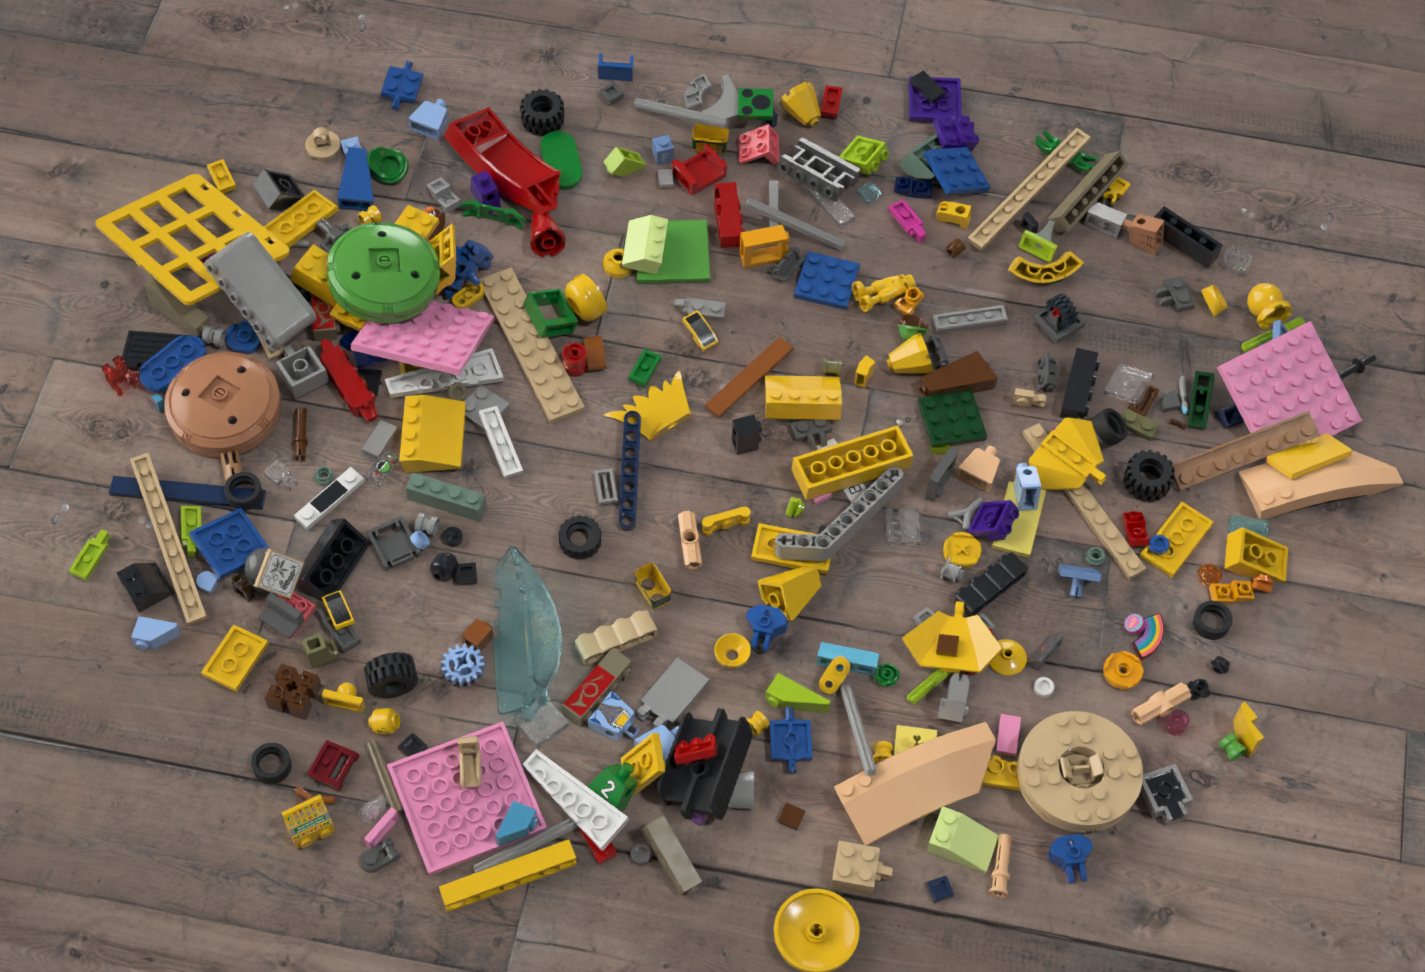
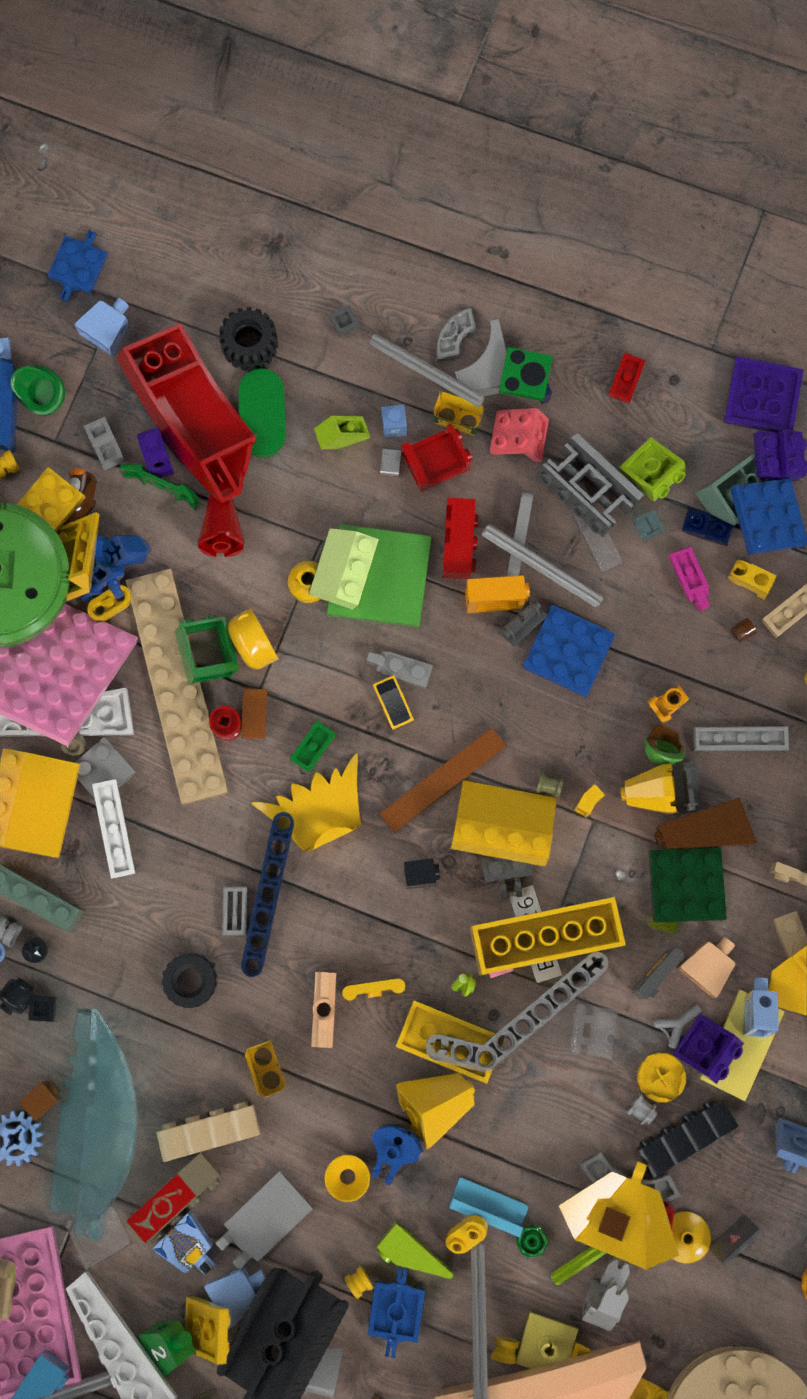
camera: 10 degrees right, 20 degrees up
(615, 70) = (355, 284): blue panel -> none
(695, 750) = (271, 1335): red plate -> none
(802, 104) = (588, 381): yellow cone -> none
(885, 289) = (642, 680): yellow piece -> none
(927, 87) = (757, 378): black tile -> none
(1008, 735) = (664, 1348): bright pink tile -> none
(1043, 687) = (722, 1289): white tile -> none

